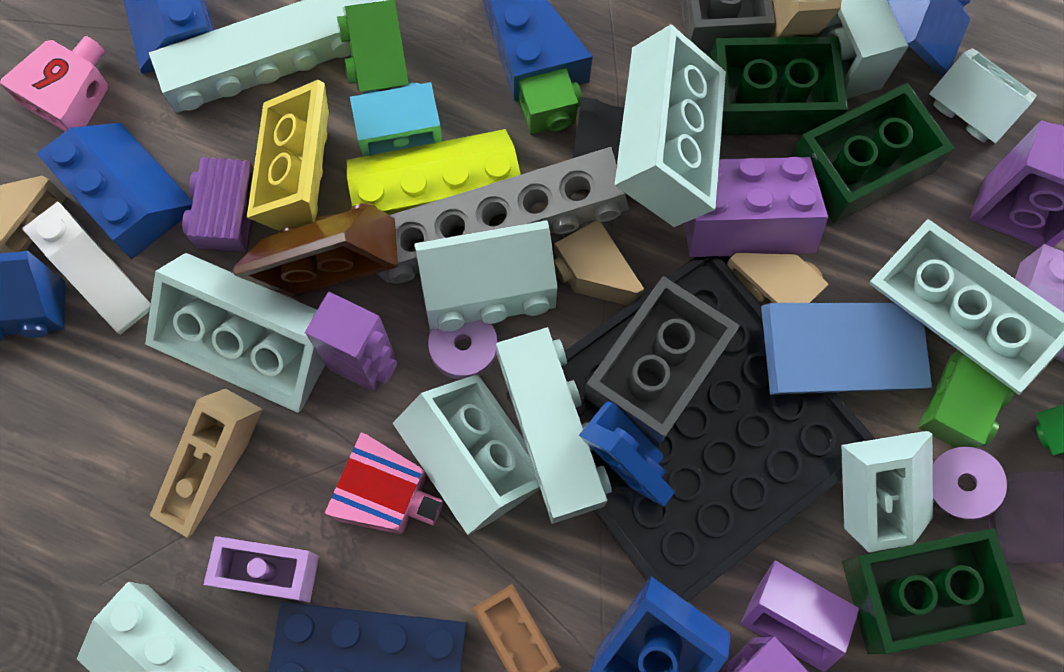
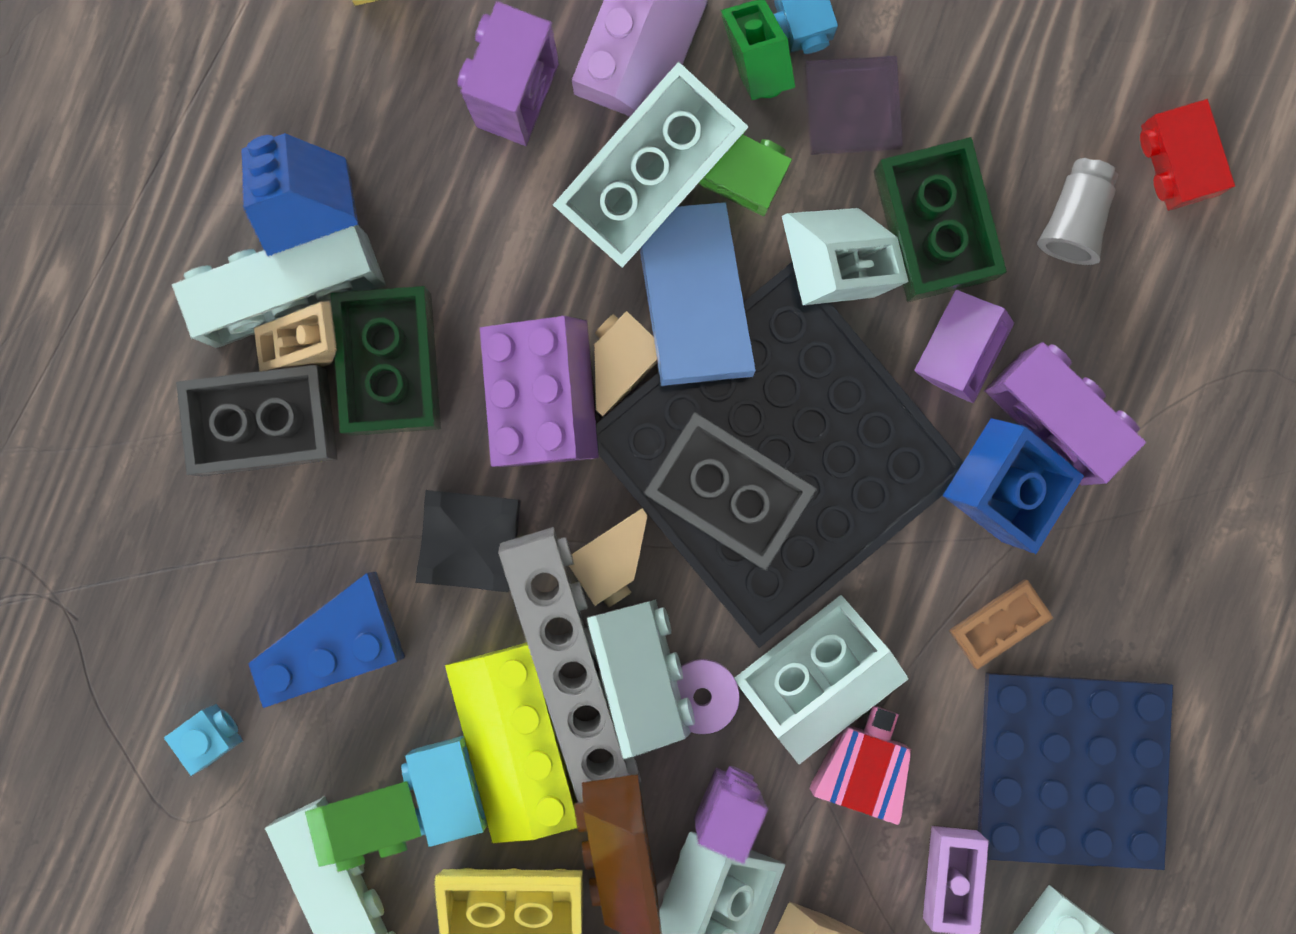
camera: 90 degrees left, 15 degrees up
(549, 101) = (413, 616): bright green brick -> none
(551, 425) = (799, 601): light aqua brick -> none
(628, 452) = (829, 524): blue bracket -> none
(671, 128) = (468, 486): light aqua brick -> none
(874, 151) = (464, 256): dark green brick -> none
(981, 96) = (378, 122): light aqua slope -> none
(983, 469) = (844, 183): lavender piece -> none

